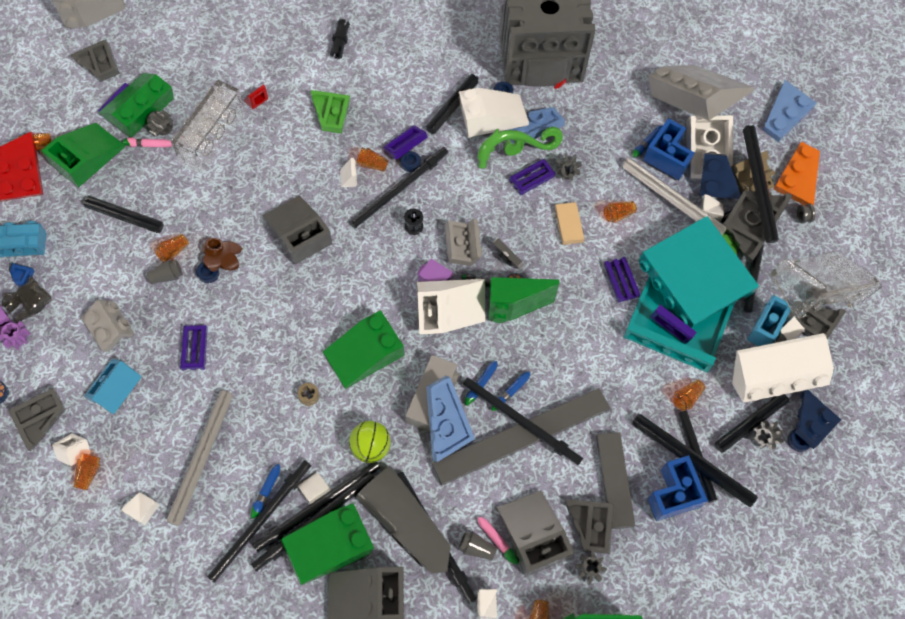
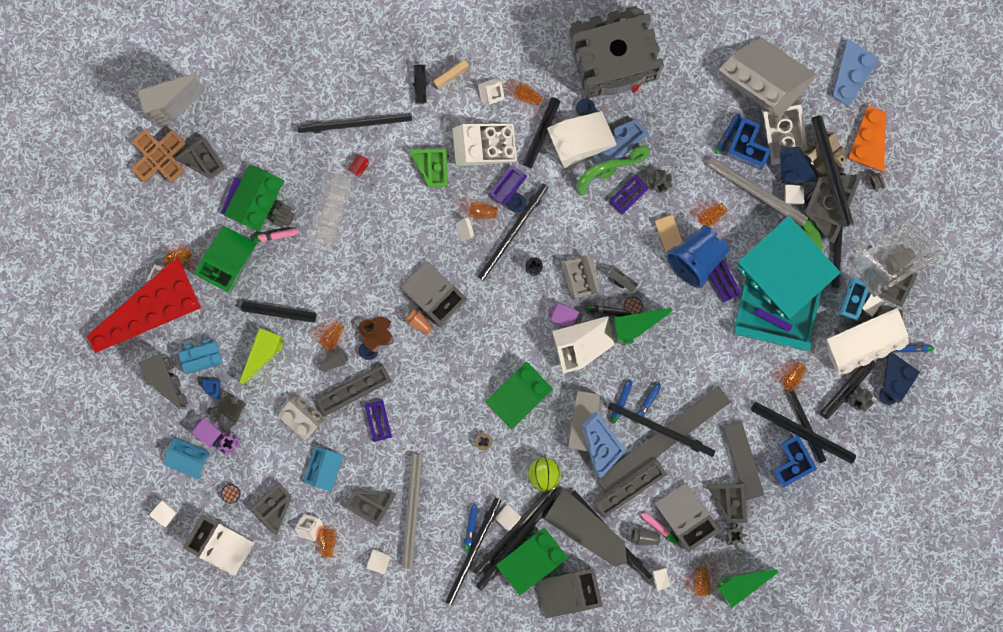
camera: 10 degrees left, 20 degrees up
(55, 50) = (158, 156): none -> medium nougat plate
(88, 248) = (263, 351): none -> lime slope
(152, 438) = (370, 505): none -> dark grey wing
(176, 309) = (353, 390): none -> dark grey tile
(225, 57) = (318, 127): none -> black bar
(271, 251) = (419, 322): none -> nougat cone
(373, 35) = (451, 74): none -> tan tile
(389, 100) = (484, 144): none -> white slope
(409, 58) = (491, 91): none -> white slope
(445, 66) = (527, 94): none -> clear orange cone
(470, 482) = (629, 488): none -> dark grey tile
(596, 241) = (697, 256): none -> blue piece
(835, 393) = (916, 348): none -> blue piece

